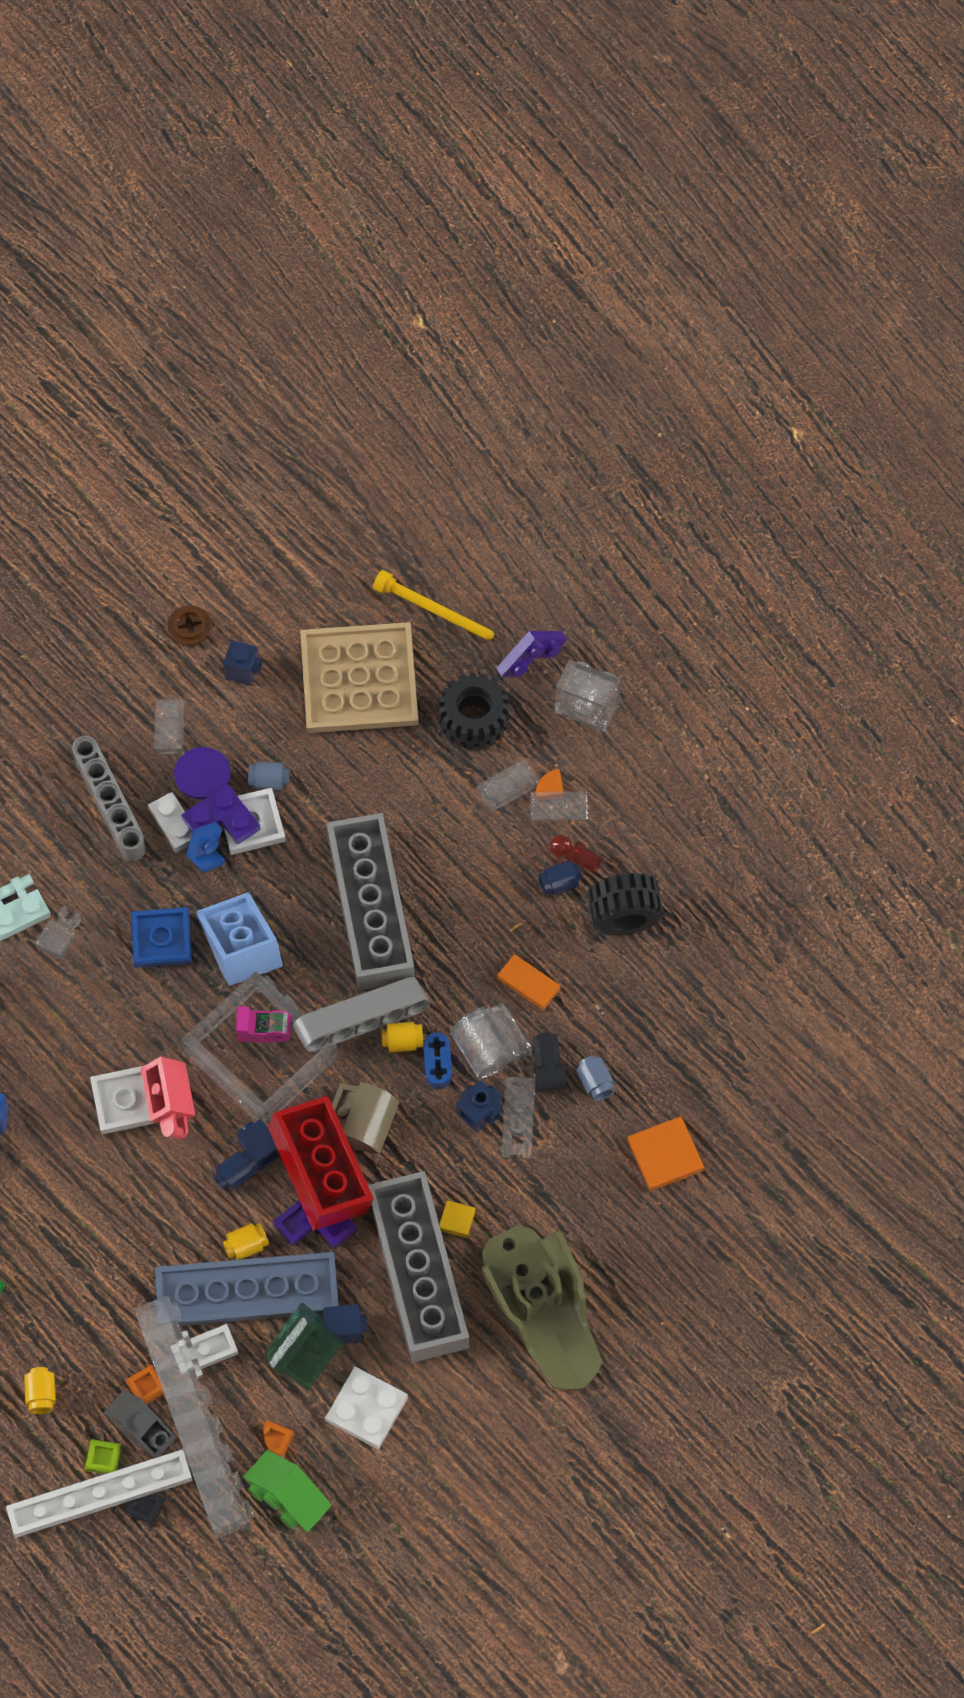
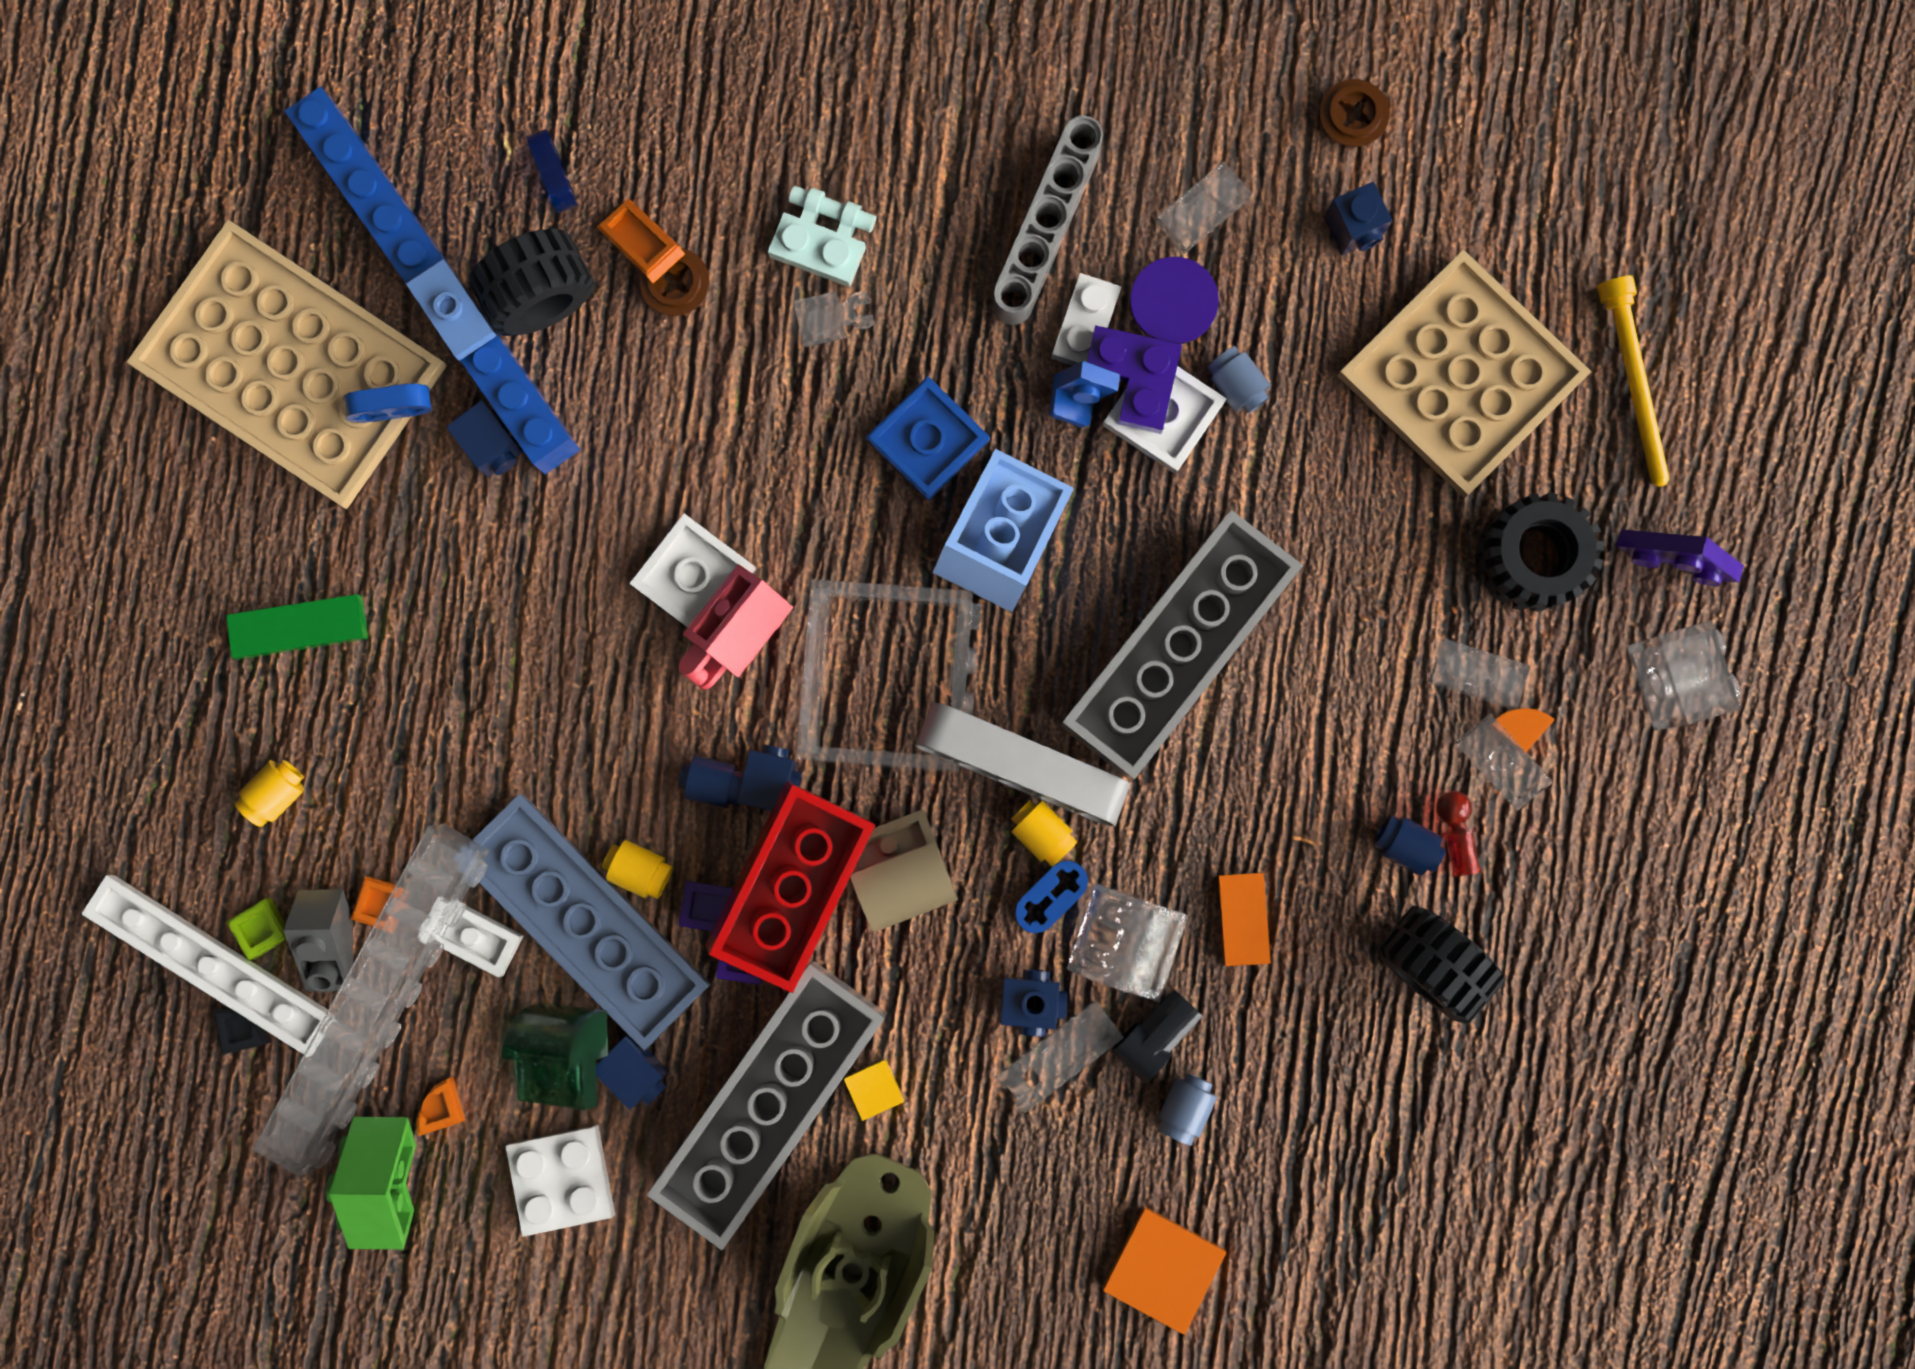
camera: 55 degrees right, 20 degrees up
(263, 1025) = (904, 664): dark pink leg -> none

